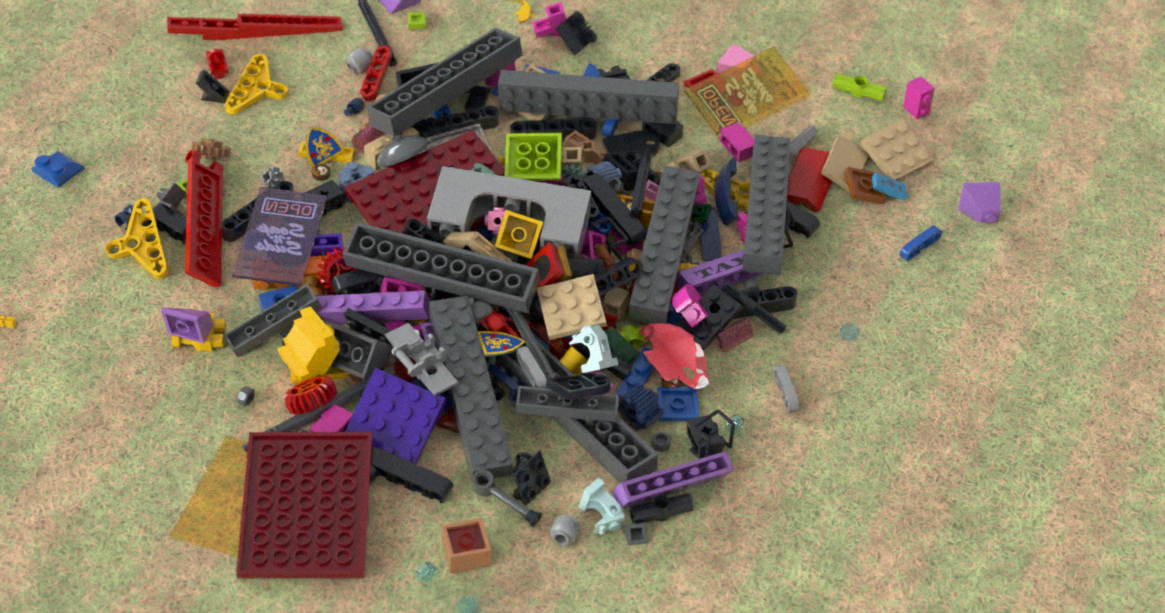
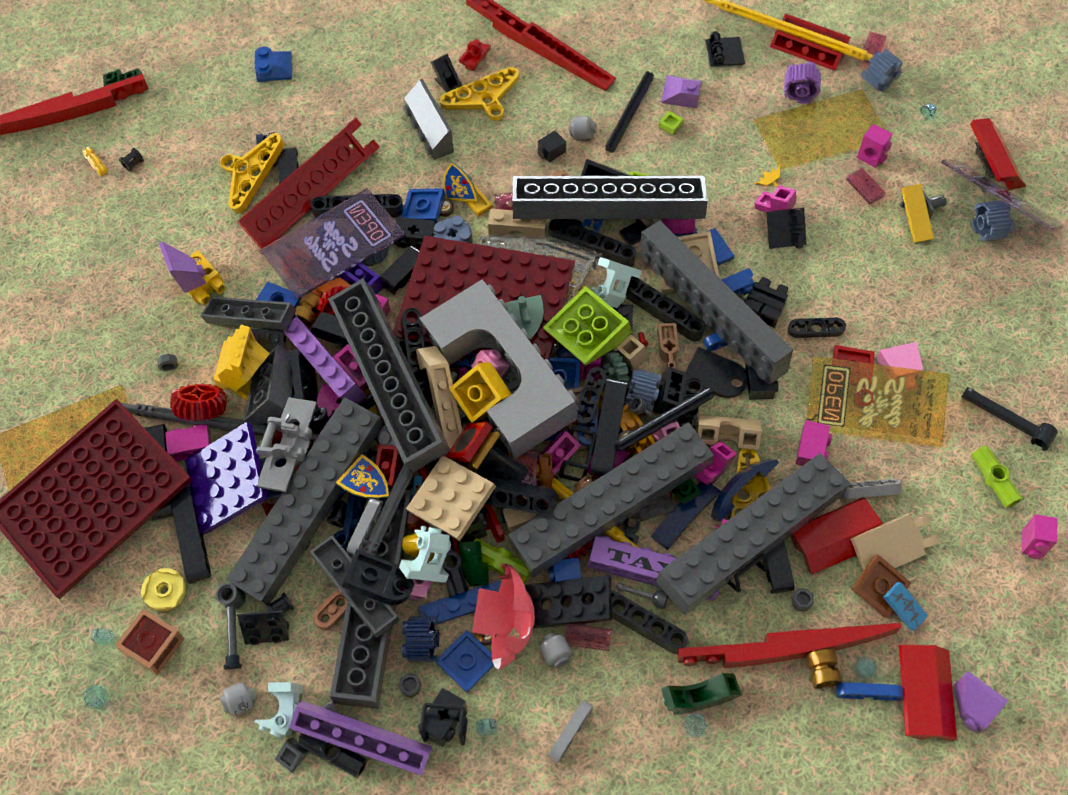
camera: 50 degrees right, 15 degrees up
(26, 293) = (136, 157): none -> black bush
(171, 197) = (307, 149): dark grey bracket -> none
(211, 149) = (382, 127): medium nougat gear -> none
(242, 121) = (428, 121): none -> slope
(272, 177) = (399, 185): light grey gear -> none
(306, 176) = (424, 204): none -> blue tile
(344, 221) = (400, 271): none -> black beam
(351, 85) = (551, 146): none -> black brick
(356, 104) = (535, 166): dark blue cylinder -> none
(385, 52) = (584, 151): red beam -> none
(401, 149) = (502, 236): dark grey dish -> none
(427, 509) = (159, 580): none -> light yellow plate
(496, 322) = (385, 459): red tile -> none
(508, 123) = (615, 271): none -> light aqua tile
(559, 443) = (330, 609): none -> nougat plate
(687, 303) = (560, 573): dark pink brick -> none
(724, 356) = (555, 650): none -> light grey head
(753, 307) = (626, 627): black axle -> none
(830, 226) = (802, 600): none -> dark grey tile
(836, 311) = (701, 695): none -> dark green arch
(848, 256) = (786, 645): none -> red slope
(858, 48) = (1041, 435): none -> black piece
(882, 247) = (823, 667): none -> pearl gold wheel
(896, 150) = (956, 574): tan plate -> none
(904, 234) = (865, 668): none -> clear light blue tile
(950, 220) = (927, 692): none -> red slope

